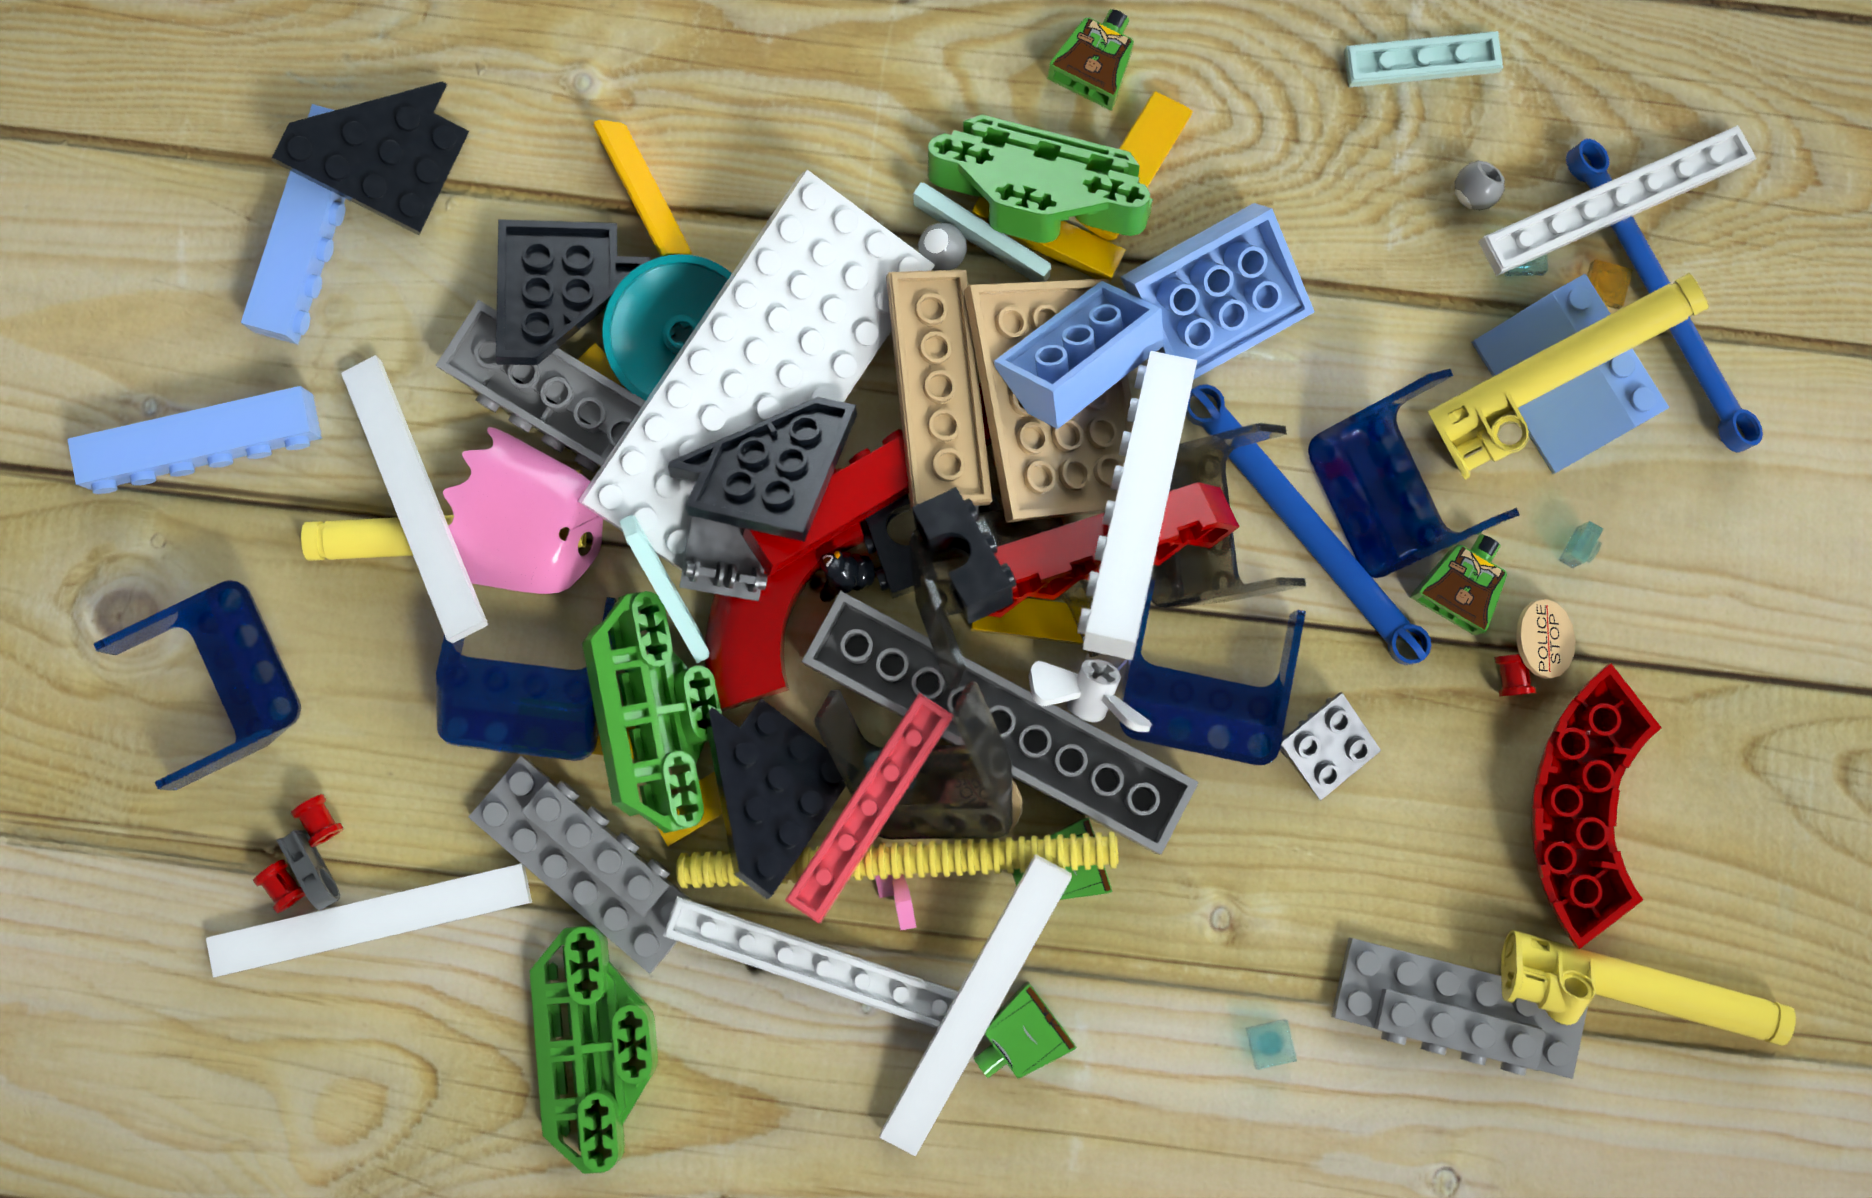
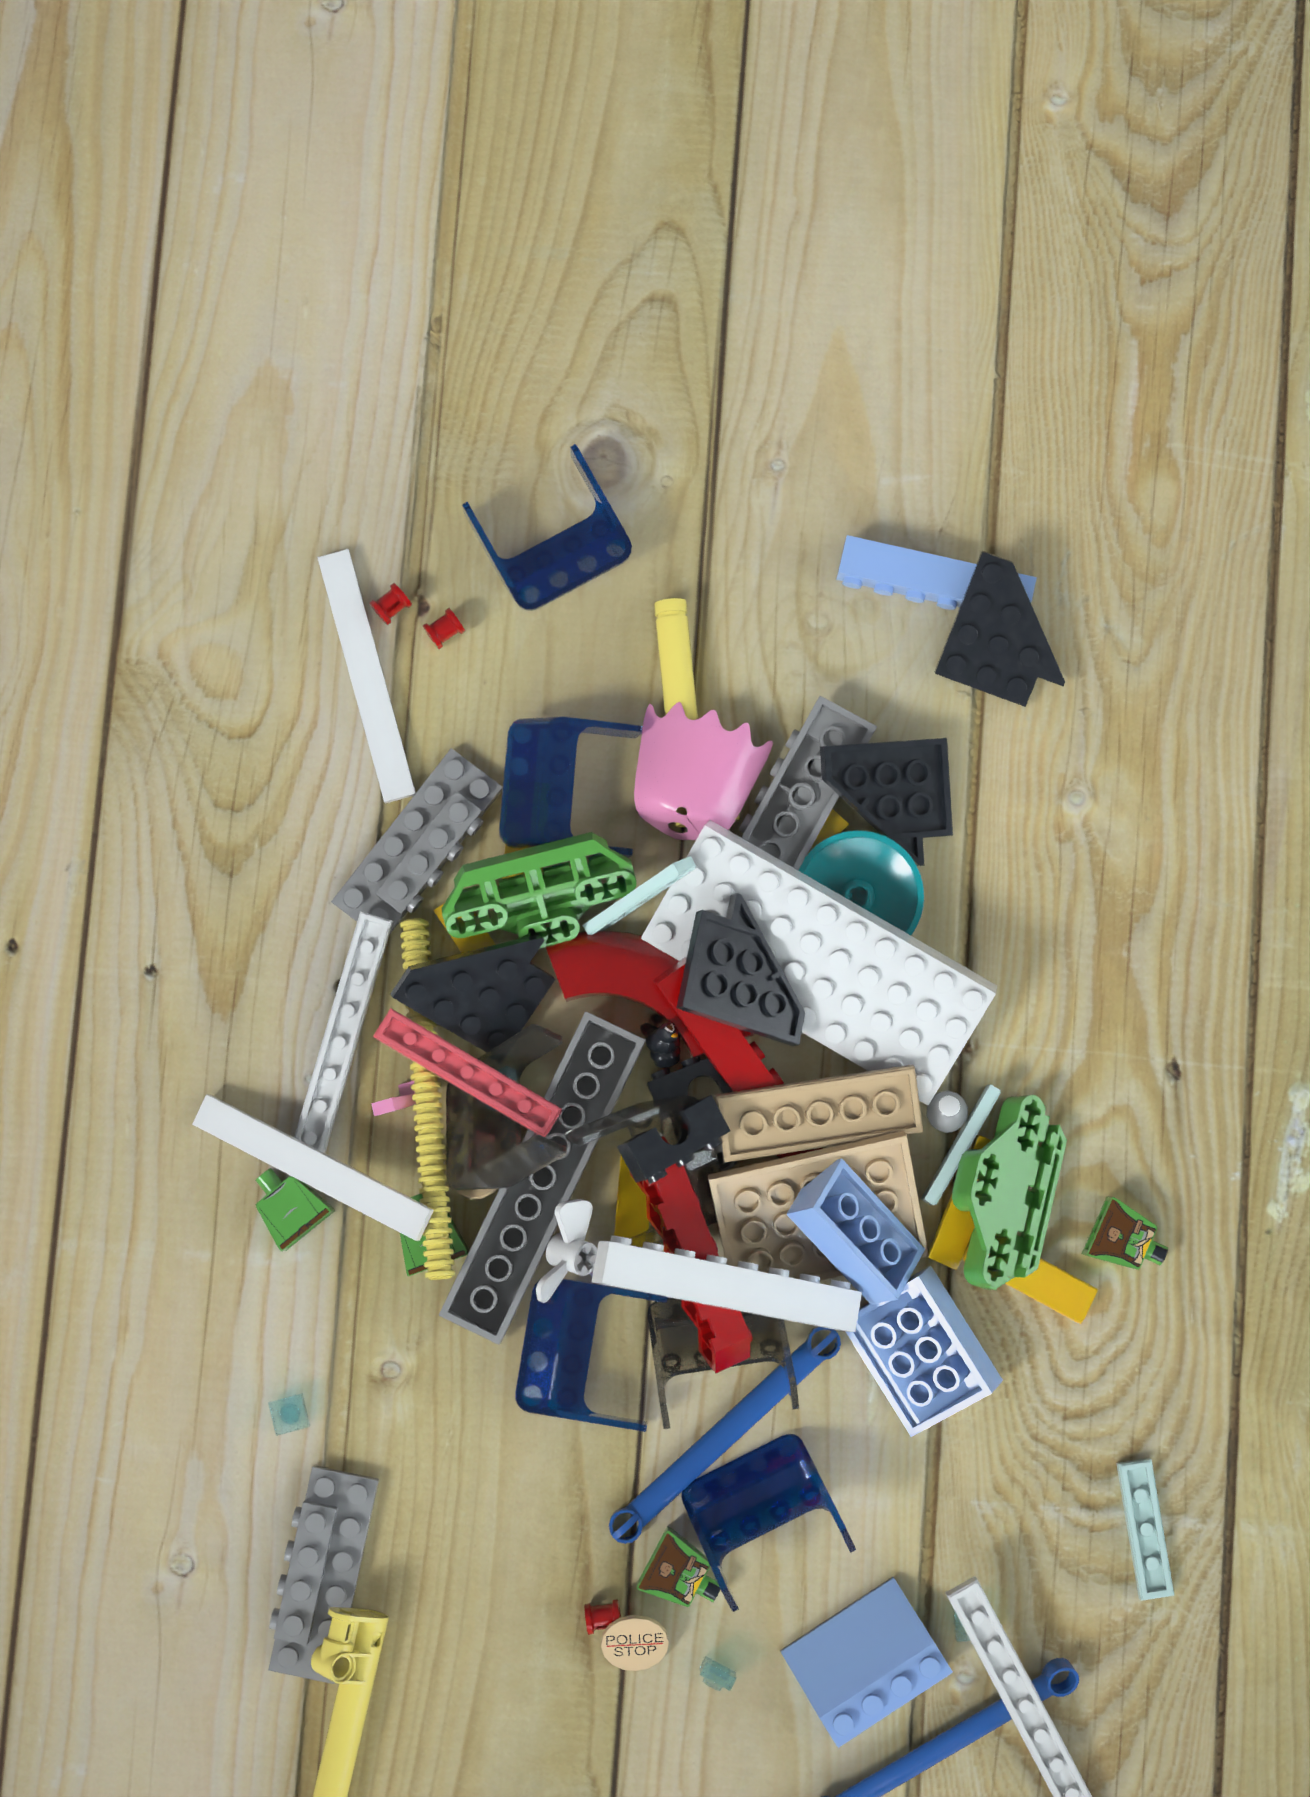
camera: 85 degrees right, 0 degrees up
(194, 439) = (750, 506): light blue brick -> none
(309, 869) = (404, 626): dark grey piece -> none
(414, 500) = (707, 686): white tile -> none
(595, 1051) = (268, 862): bright green connector -> none
(642, 188) = (982, 855): yellow slope -> none
(721, 561) = (661, 940): flat silver hinge -> none
(1329, 745) = (536, 1457): hinge -> none
(1477, 415) = (825, 1580): light yellow piece -> none
(1479, 185) = (1030, 1579): light grey piece -> none
(1578, 804) = (497, 1671): red brick -> none
(1610, 282) = (951, 1697): clear yellow plate -> none

